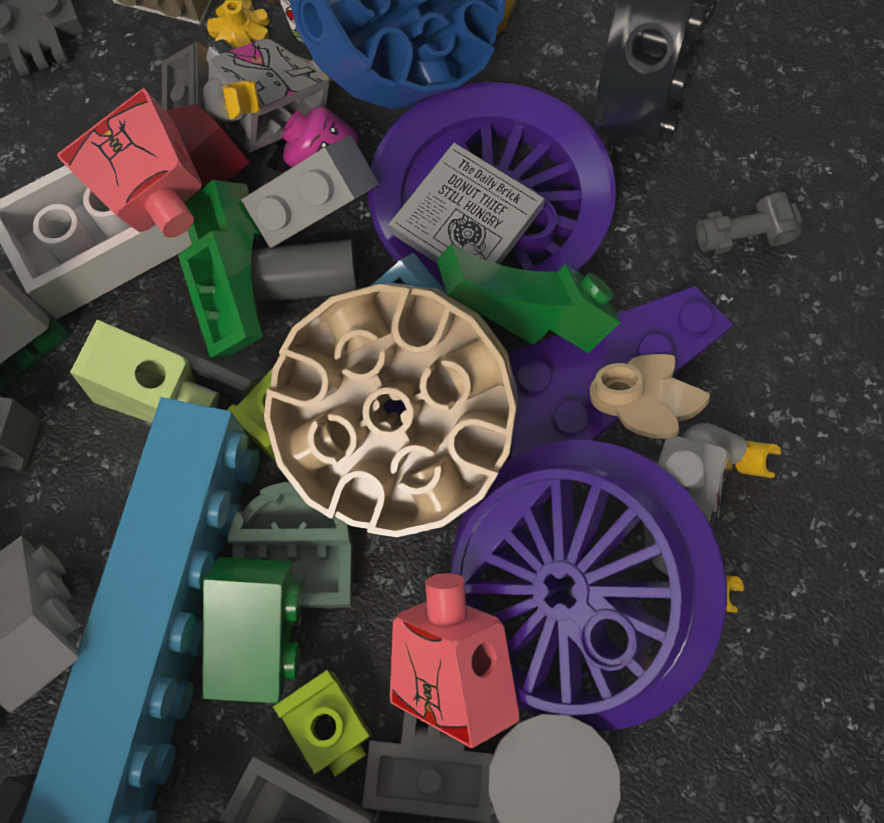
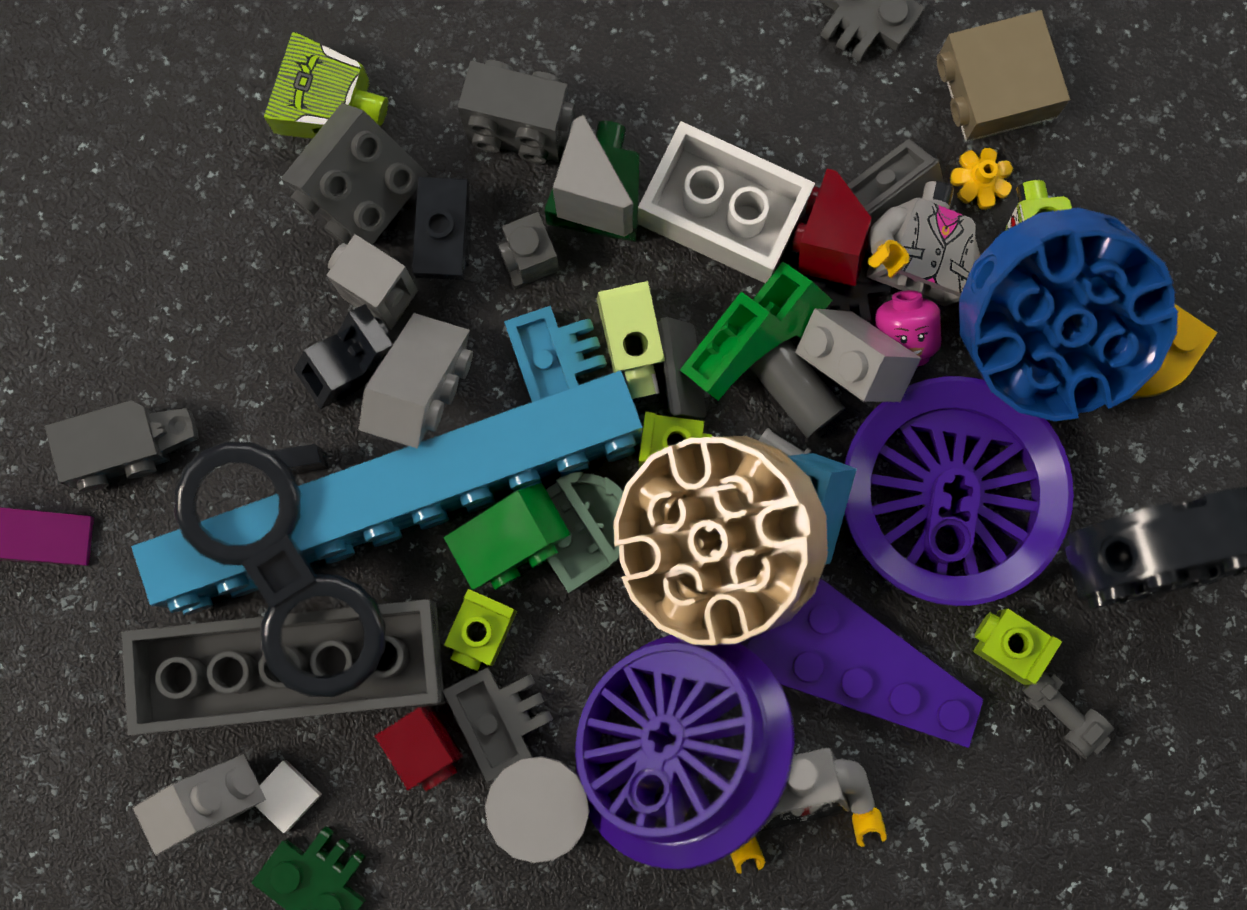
camera: 55 degrees right, 10 degrees up
(101, 475) = (549, 354): none -> dark azure hinge
(137, 166) = (781, 224): coral torso -> none
(452, 665) = (569, 693): coral torso -> none
(466, 206) = (915, 489): light grey tile -> none
(531, 300) = (872, 584): green slope -> none
(647, 395) = (857, 720): tan plate -> none
(681, 232) = (1023, 666): none -> lime brick

